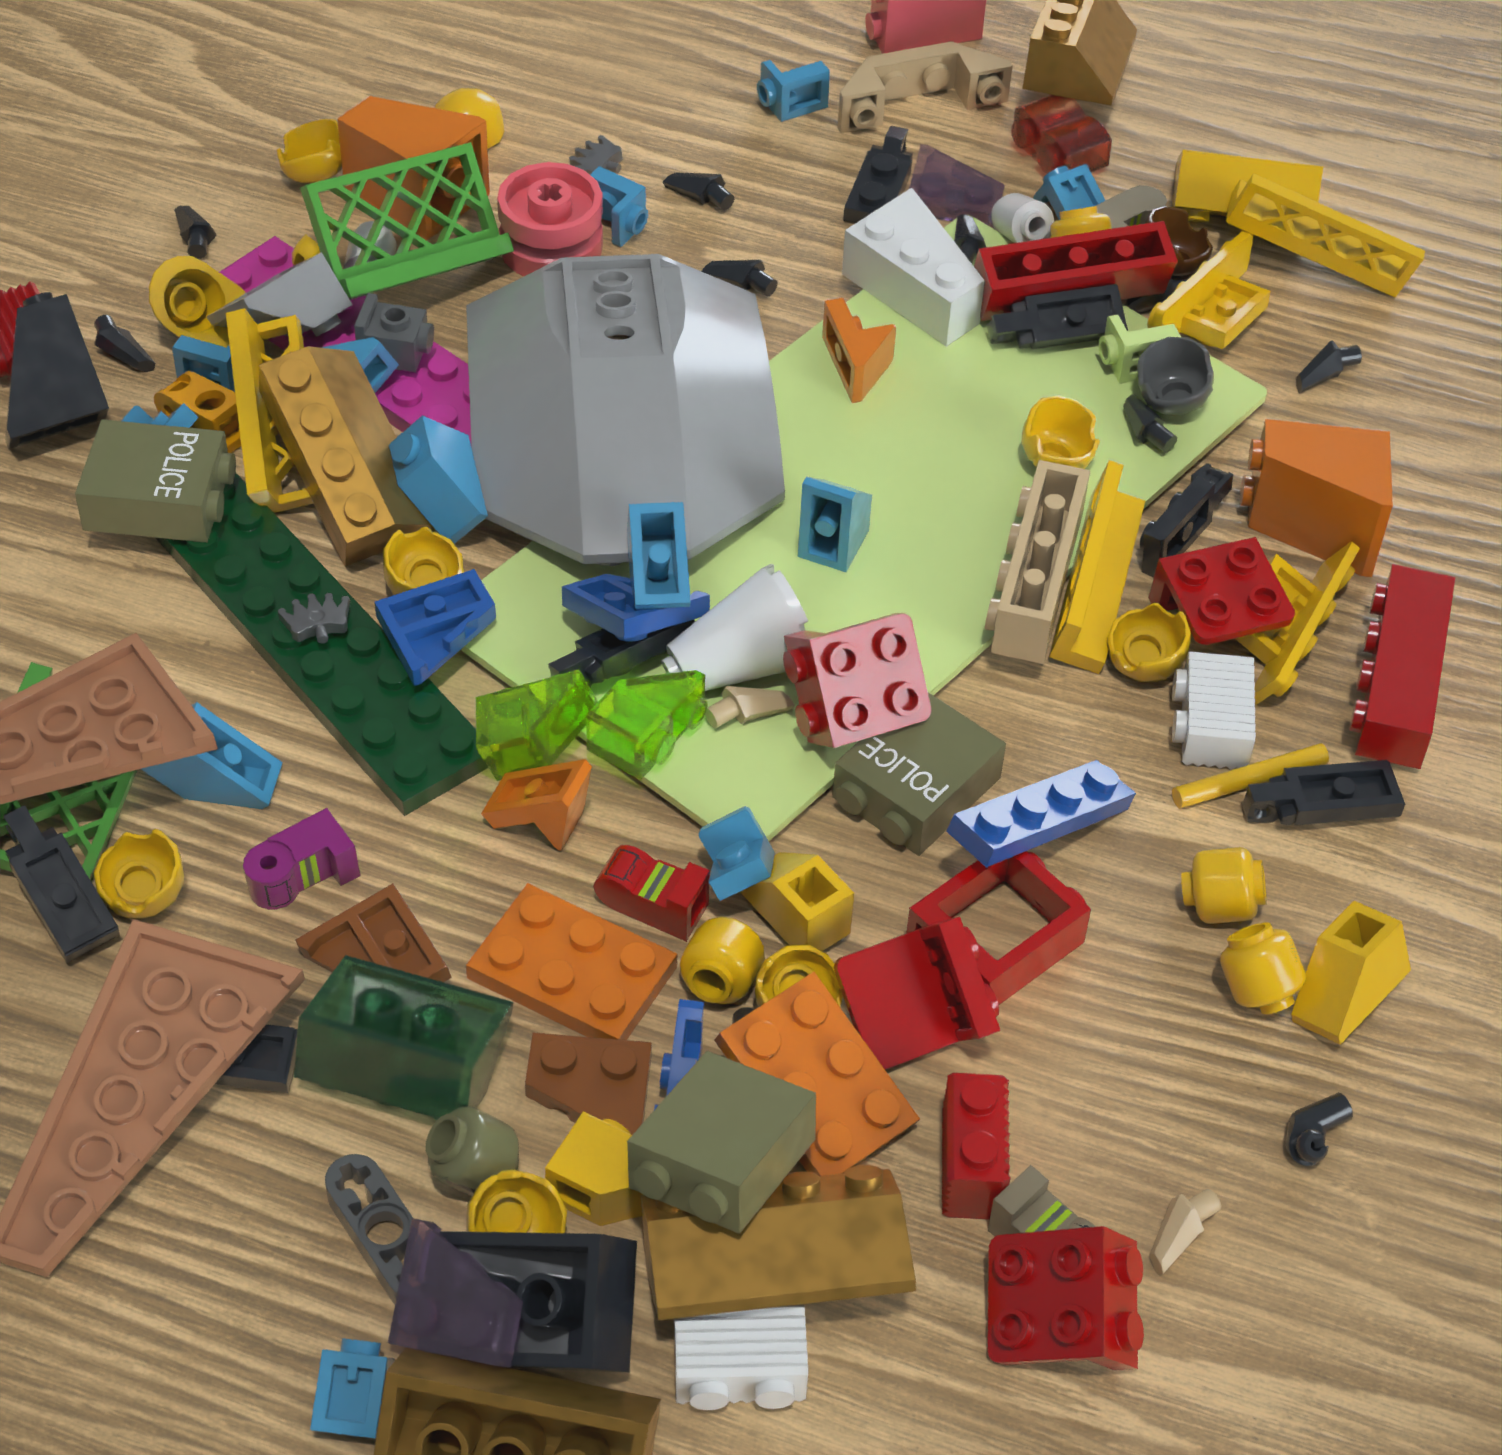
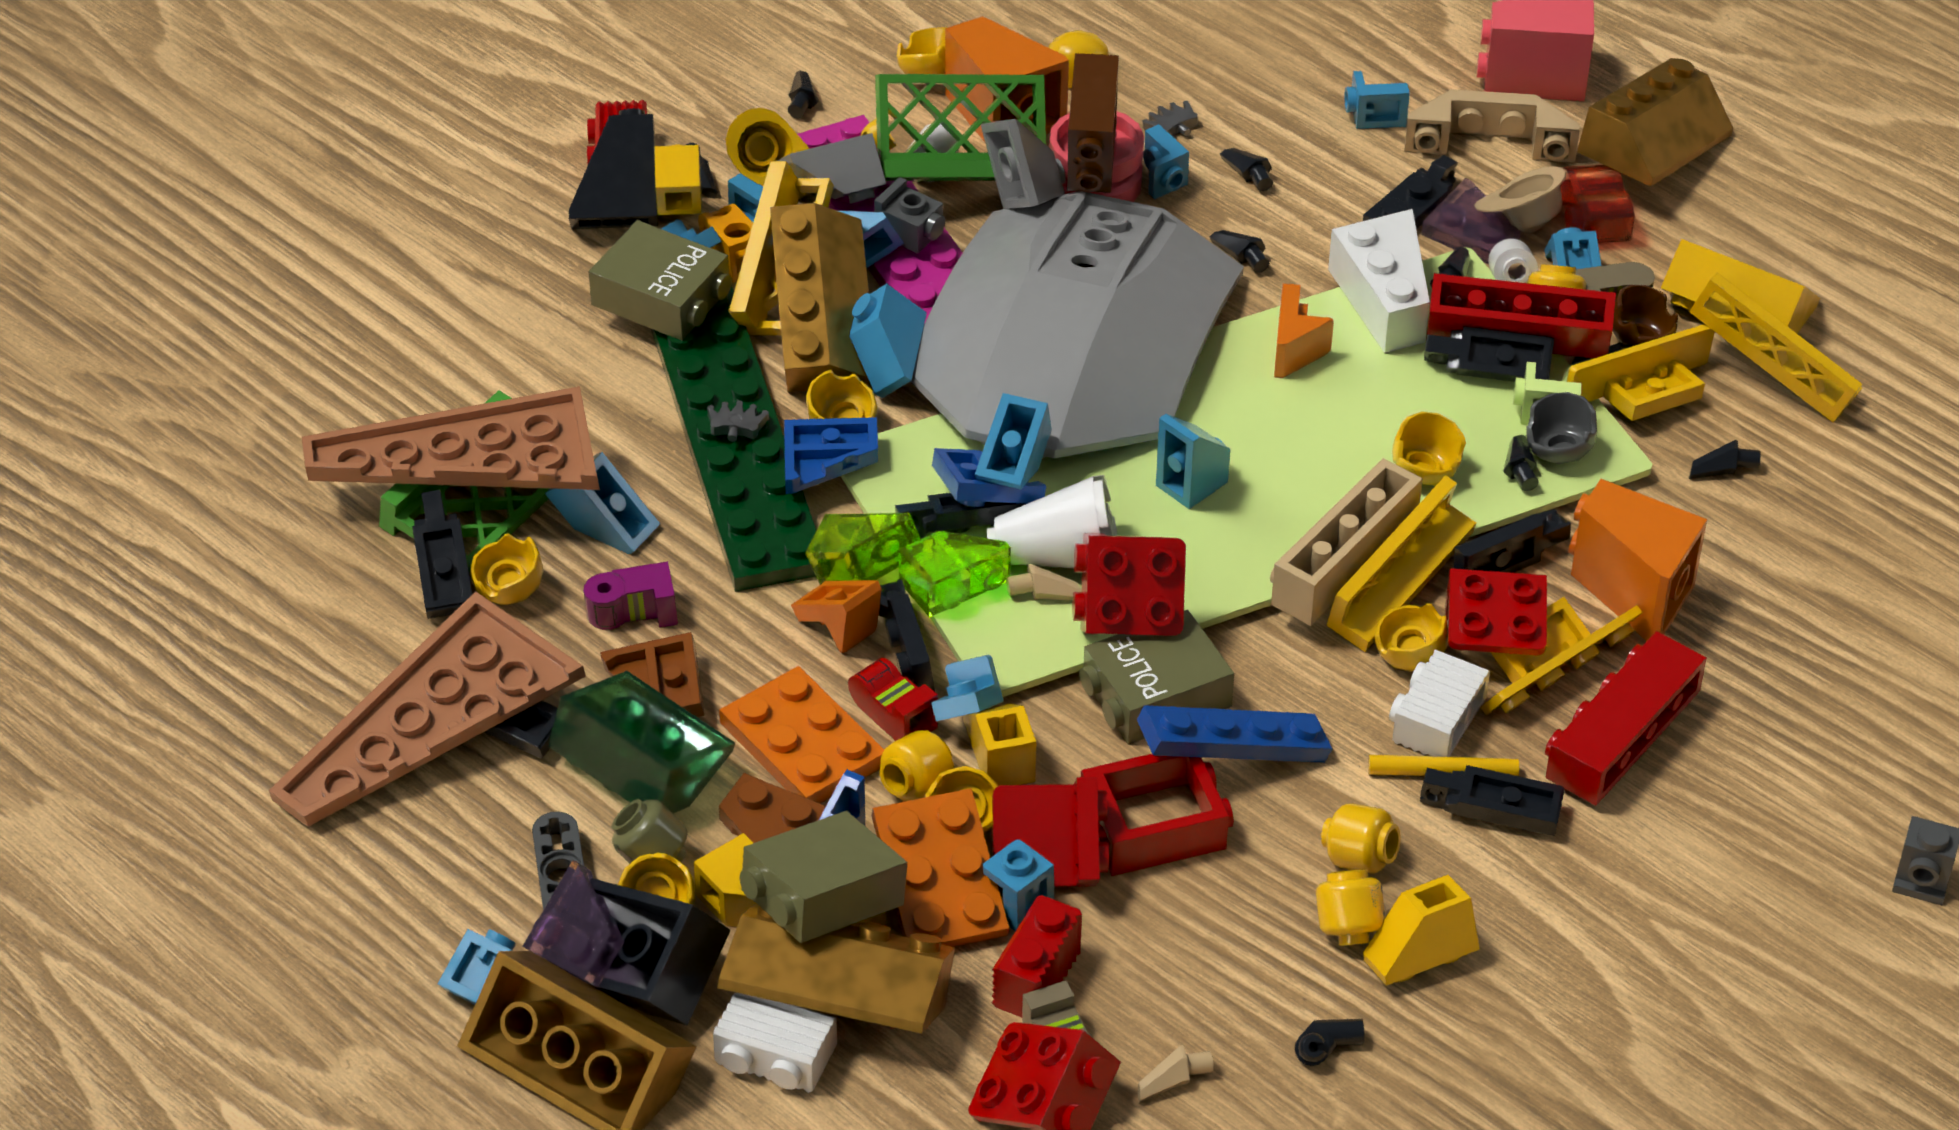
camera: 25 degrees right, 5 degrees down
(121, 360) = (678, 179): none -> yellow slope
(488, 246) = (1022, 165): none -> light grey slope
(556, 180) = (1092, 123): none -> reddish brown window
(628, 806) = (905, 632): none -> black hinge
(915, 1056) = (1022, 876): none -> dark azure bracket
(998, 146) = (1528, 199): none -> tan piece

